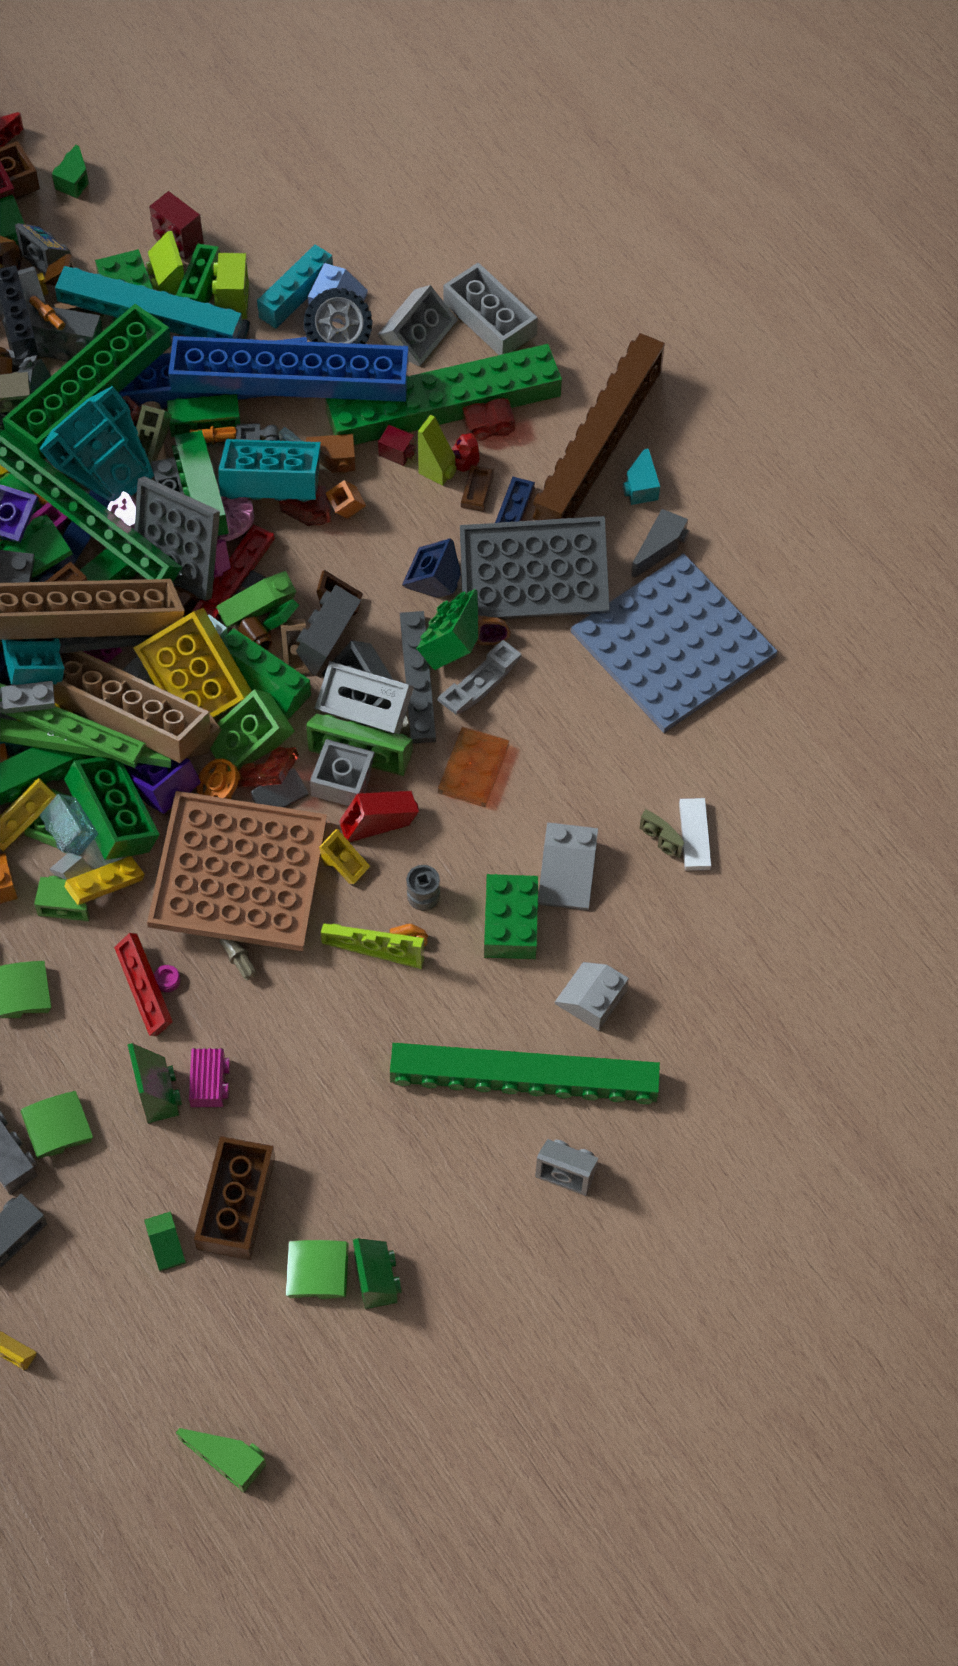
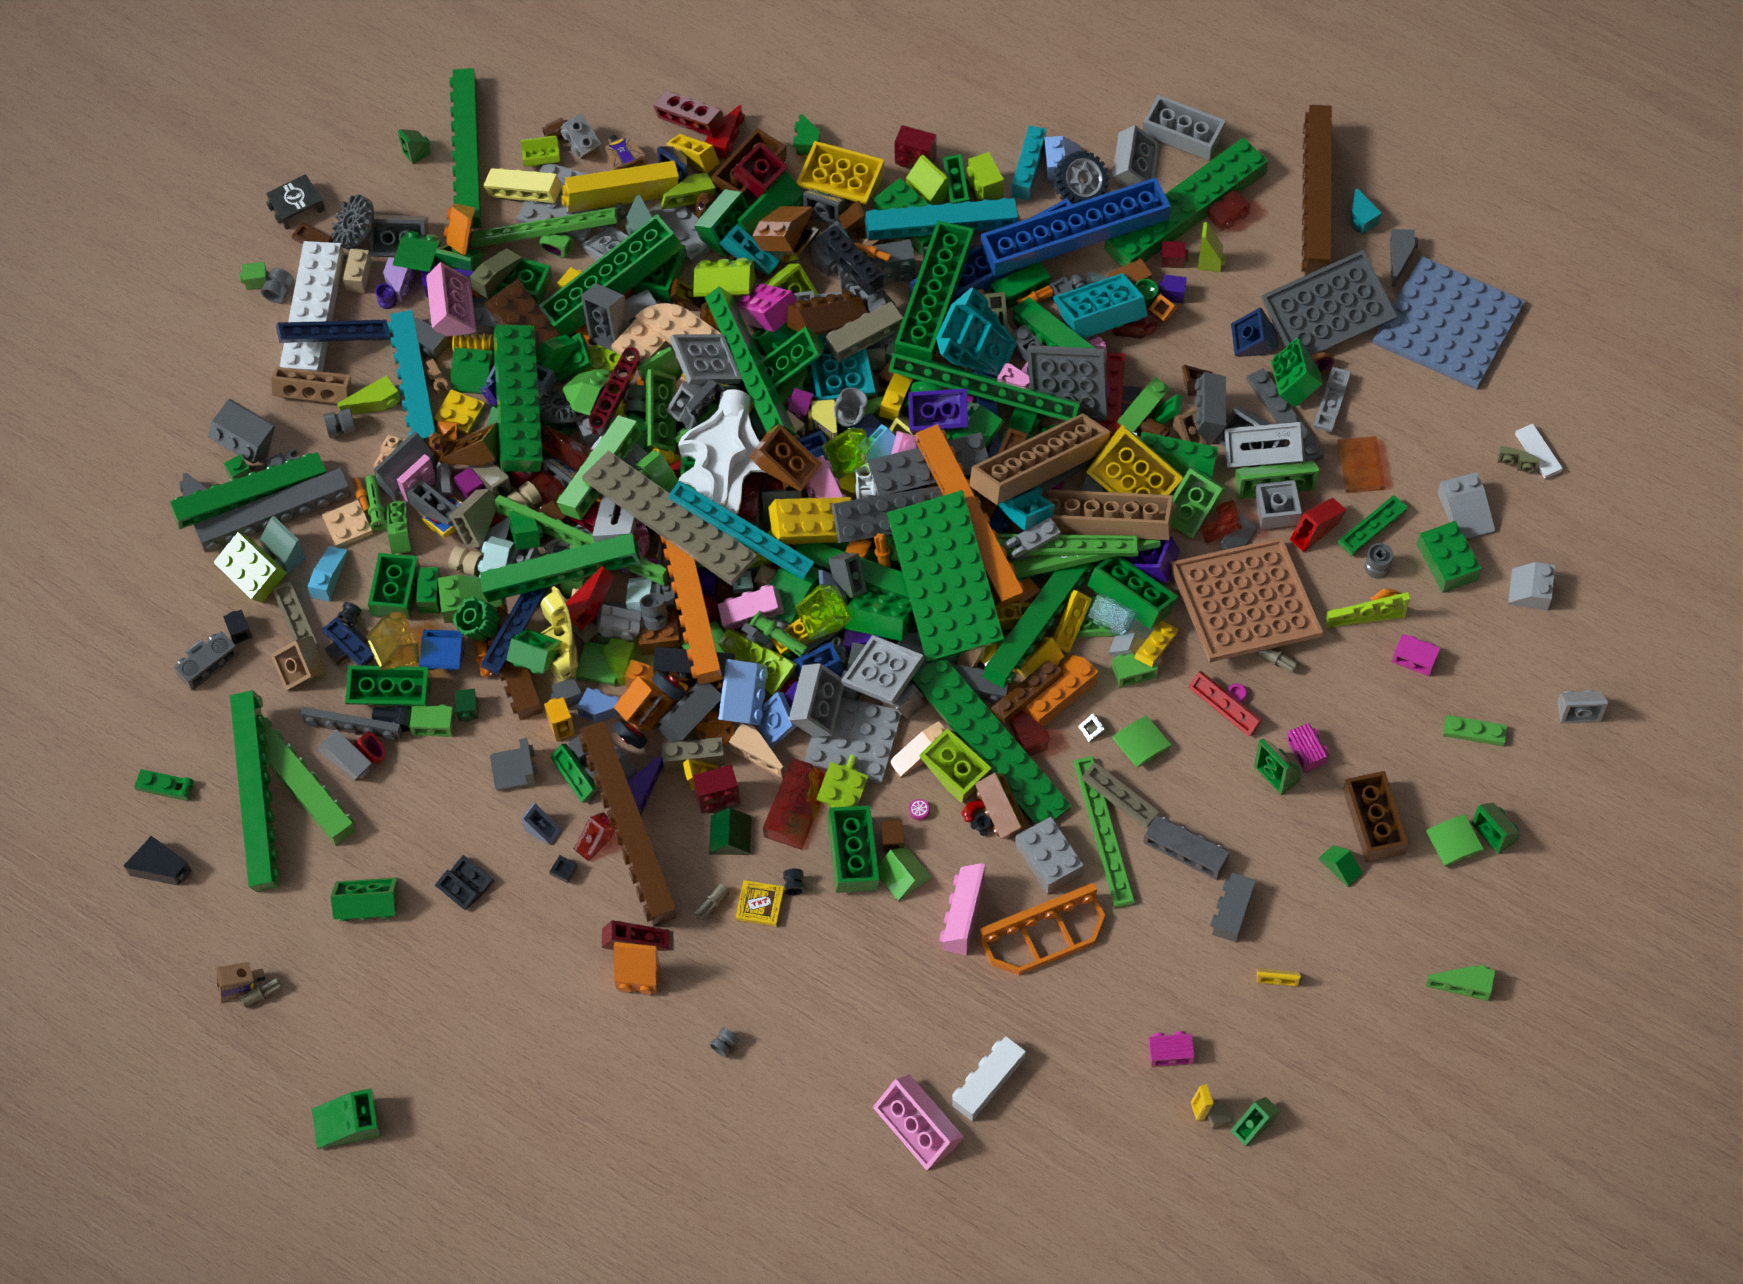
camera: 20 degrees left, 0 degrees up
(56, 1124) = (1223, 819): bright green slope -> none
(80, 222) = (841, 172): none -> yellow slope
(221, 781) = (1193, 544): orange wheel -> none
(333, 471) = (1148, 289): none -> green wheel
(339, 853) = (1312, 561): yellow slope -> none
(373, 482) = (1173, 288): none -> dark purple brick
(403, 1018) = (1415, 654): none -> dark pink brick
(423, 1142) = (1474, 730): none -> bright green plate
(443, 843) = (1372, 525): none -> green plate
(466, 452) = (1229, 238): red rock -> none
(477, 488) = (1247, 264): reddish brown tile -> none
(515, 500) = (1280, 265): dark blue tile -> none
(524, 1072) = (1517, 657): green brick -> none

